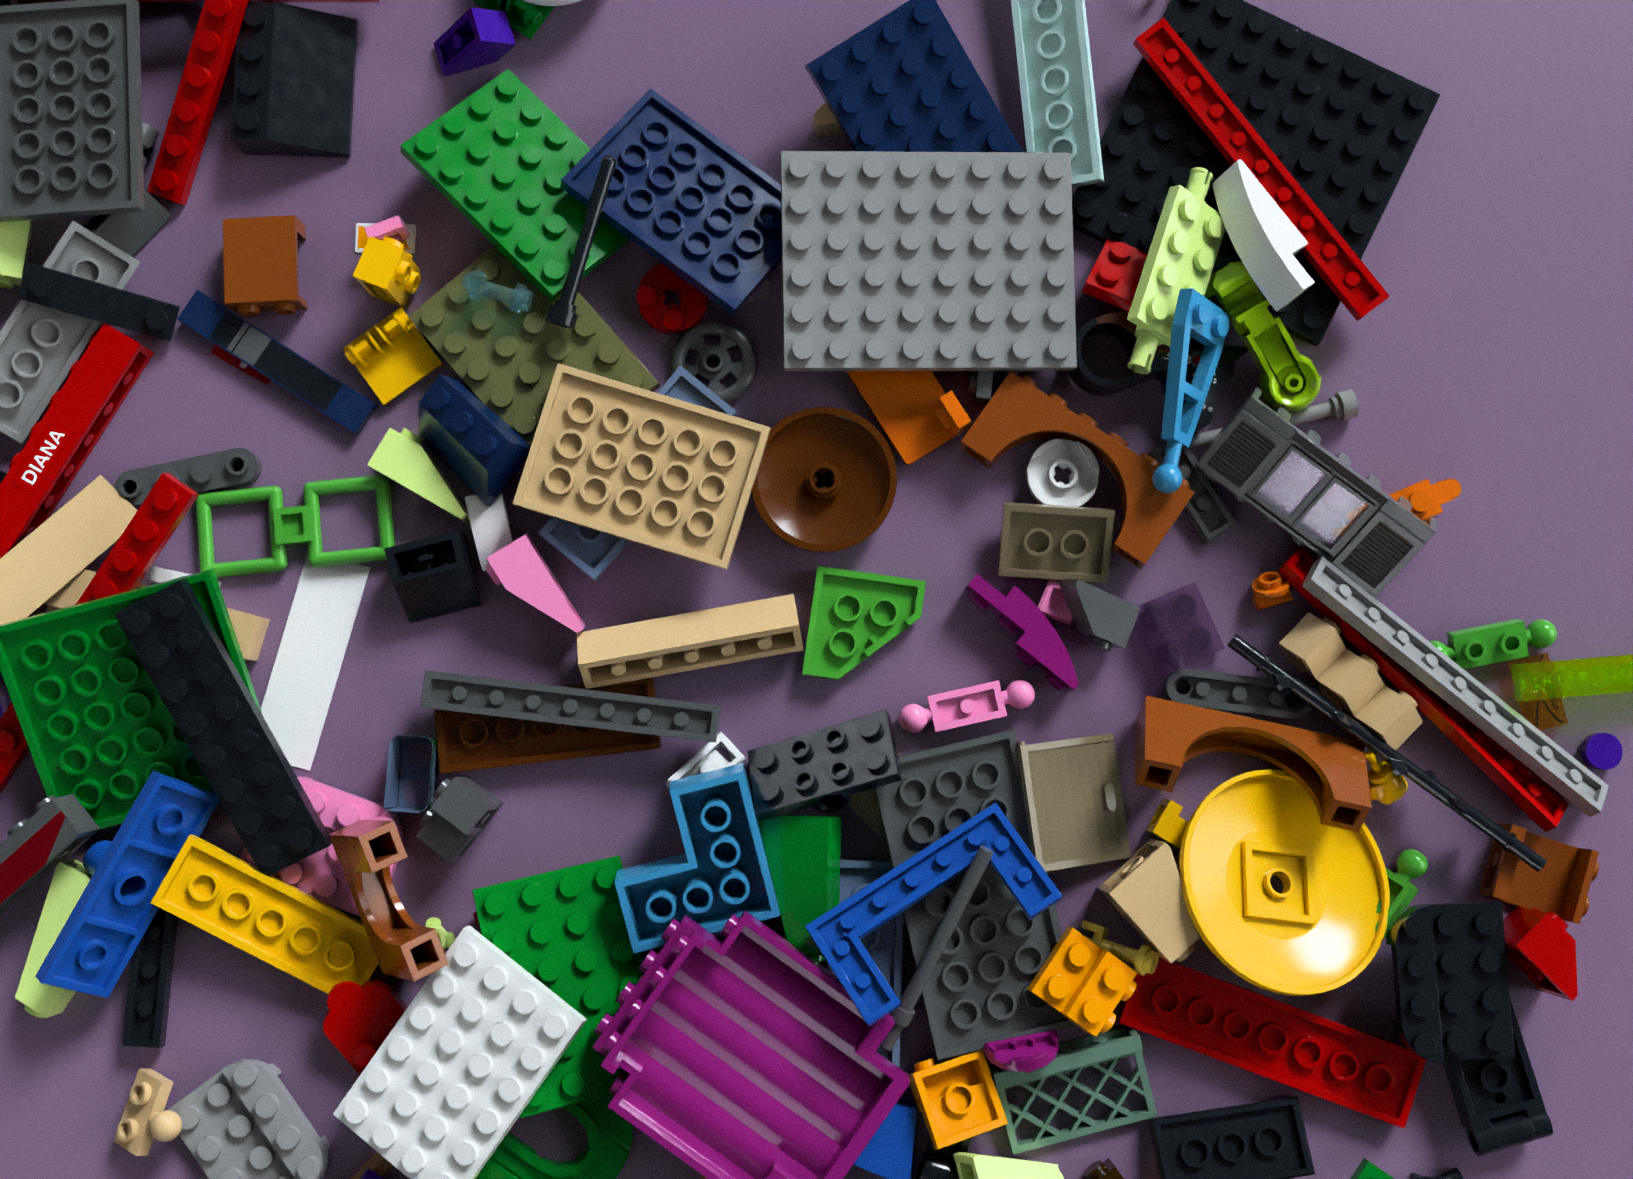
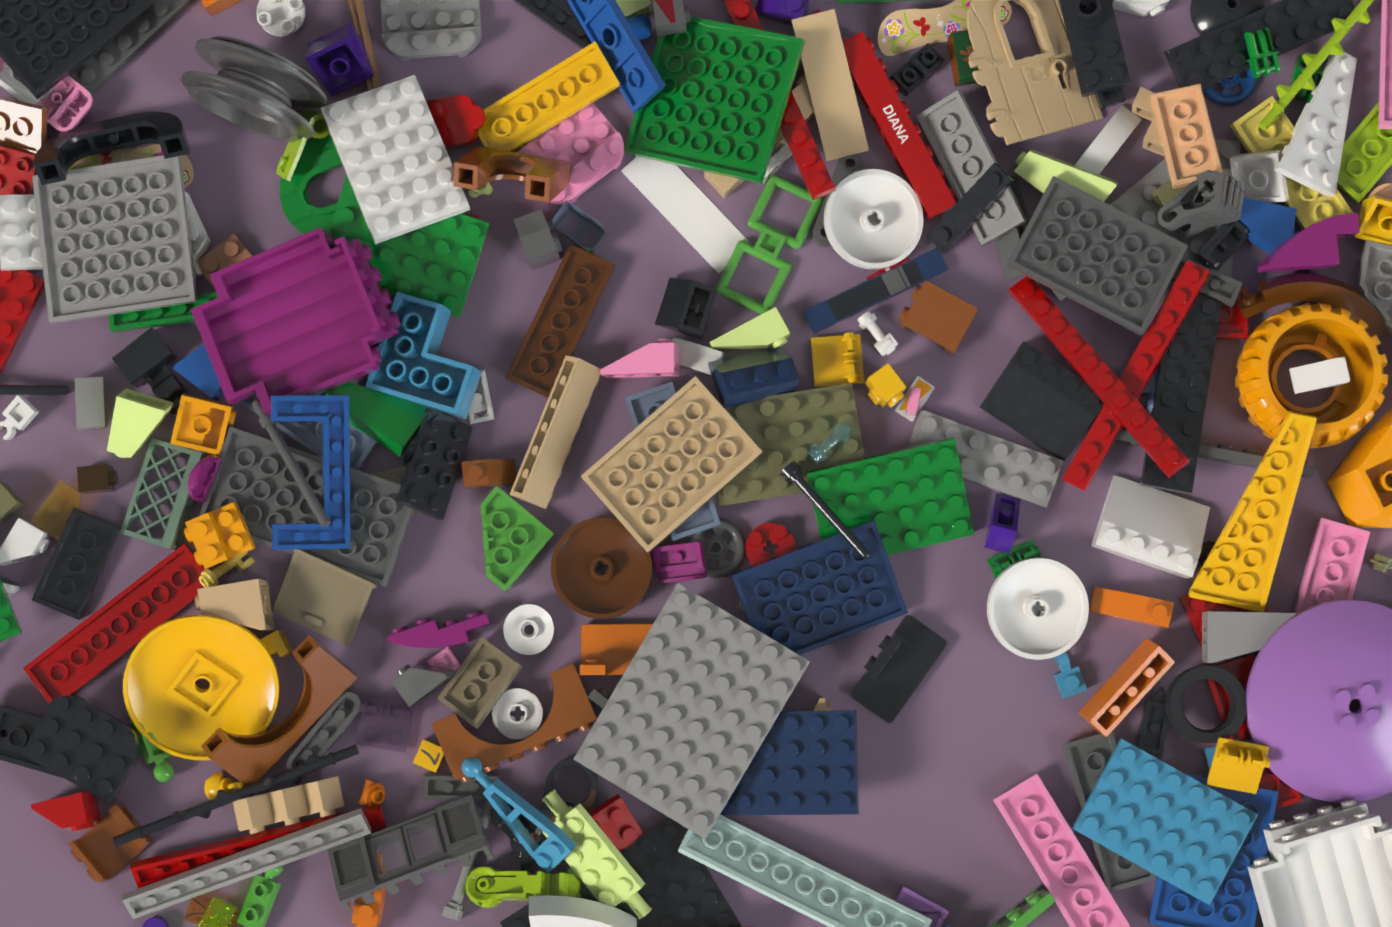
camera: 125 degrees right, 0 degrees up
(184, 412) = (873, 219): none -> white dish
(223, 727) = (667, 138): black plate -> none
(336, 310) = (884, 344): none -> white bar
(404, 100) = (993, 460): none -> light grey plate
(570, 706) = (559, 340): dark grey plate -> none
(724, 62) = (898, 668): none -> black bracket
(757, 389) = (679, 562): none -> magenta plate
(793, 693) = (488, 473): none -> dark orange slope
(959, 506) = (515, 629): none -> white dish
(966, 706) = (418, 570): bright pink plate -> none
(1180, 550) = (429, 756): none -> yellow tile

